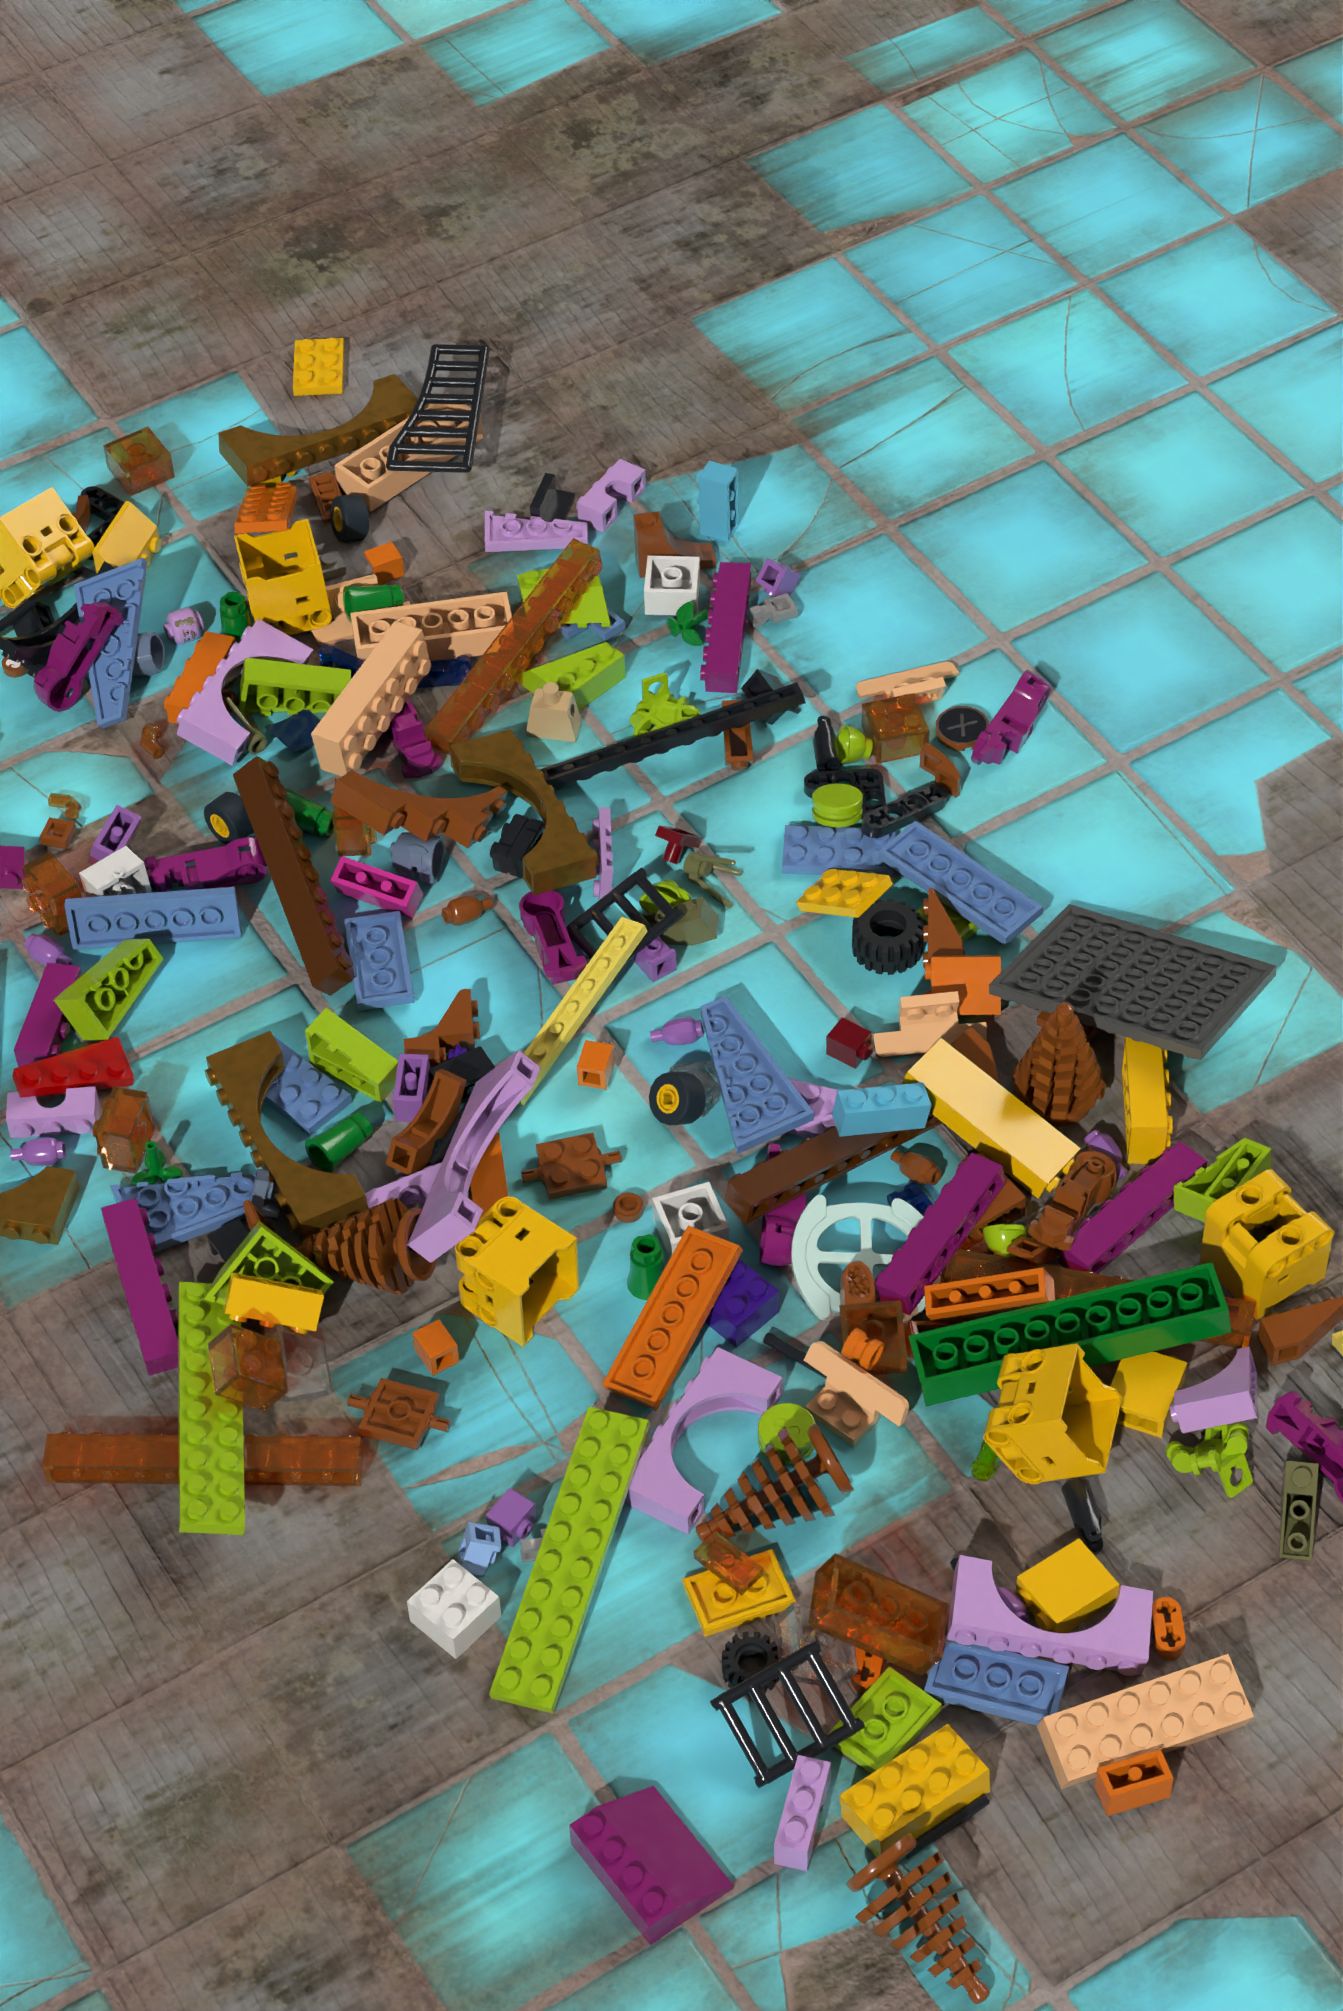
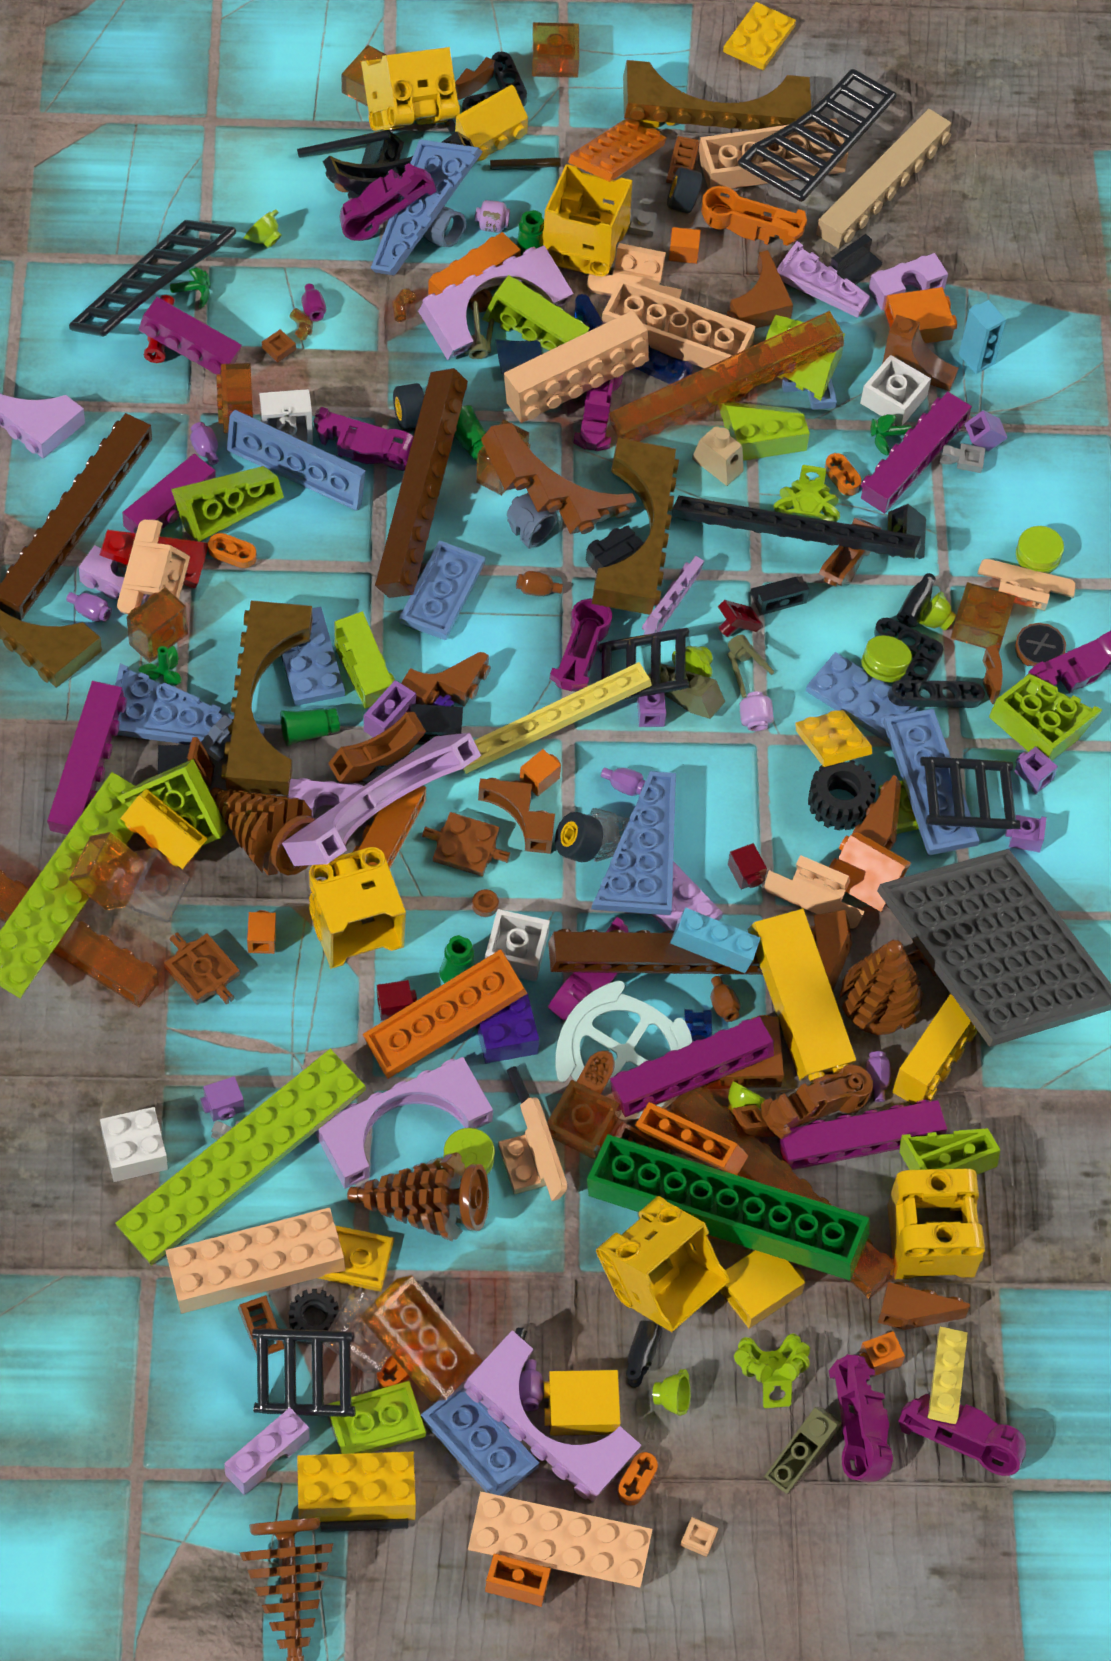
camera: 25 degrees right, 10 degrees up
(64, 781) = (313, 303): none -> magenta plant
(81, 1080) = (151, 567): none -> light nougat plate
(116, 834) = (315, 373): medium lavender brick -> none
(146, 1031) = (233, 550): none -> orange plate
(179, 569) = (525, 163): none -> dark brown bar
(371, 598) = (649, 274): green plant -> none
(376, 887) = (480, 528): dark pink brick -> none
(425, 515) = (748, 218): none -> orange piece
(479, 1547) = (181, 1108): light blue brick -> none
(495, 566) = (765, 298): none -> dark orange arch
(525, 425) = (884, 179): none -> tan brick
(590, 1101) = (515, 799): none -> dark orange arch
(608, 1336) = (394, 997): none -> dark red brick
(648, 498) = (927, 307): none -> orange brick
(648, 1861) = (138, 1418): magenta slope -> none
(656, 1644) = (255, 1260): none -> light nougat brick
(680, 679) = (846, 472): none -> orange beam
(690, 1707) = (261, 1302): none -> dark orange slope
(697, 805) = (779, 595): none -> black panel
(728, 1563) = (350, 1230): clear orange plate -> none
(754, 910) = (756, 711): none -> lavender head
(862, 1348) = (560, 1123): orange wheel -> none
(900, 650) = (1039, 549): none -> lime head
(983, 1467) = (593, 1270): clear neon green pin -> none
(996, 846) = (959, 819): none -> black bar
(1013, 782) = (1042, 716): none -> lime wedge
(1040, 826) = (1035, 769): none -> medium lavender brick
(1074, 882) = (1030, 834): none -> medium lavender brick
(1141, 1531) = (673, 1393): none -> lime piece
(1221, 1399) = (810, 1329): lavender arch -> none
(1264, 1645) = (699, 1536): none -> light nougat tile
(1303, 1379) = (882, 1353): none -> orange brick

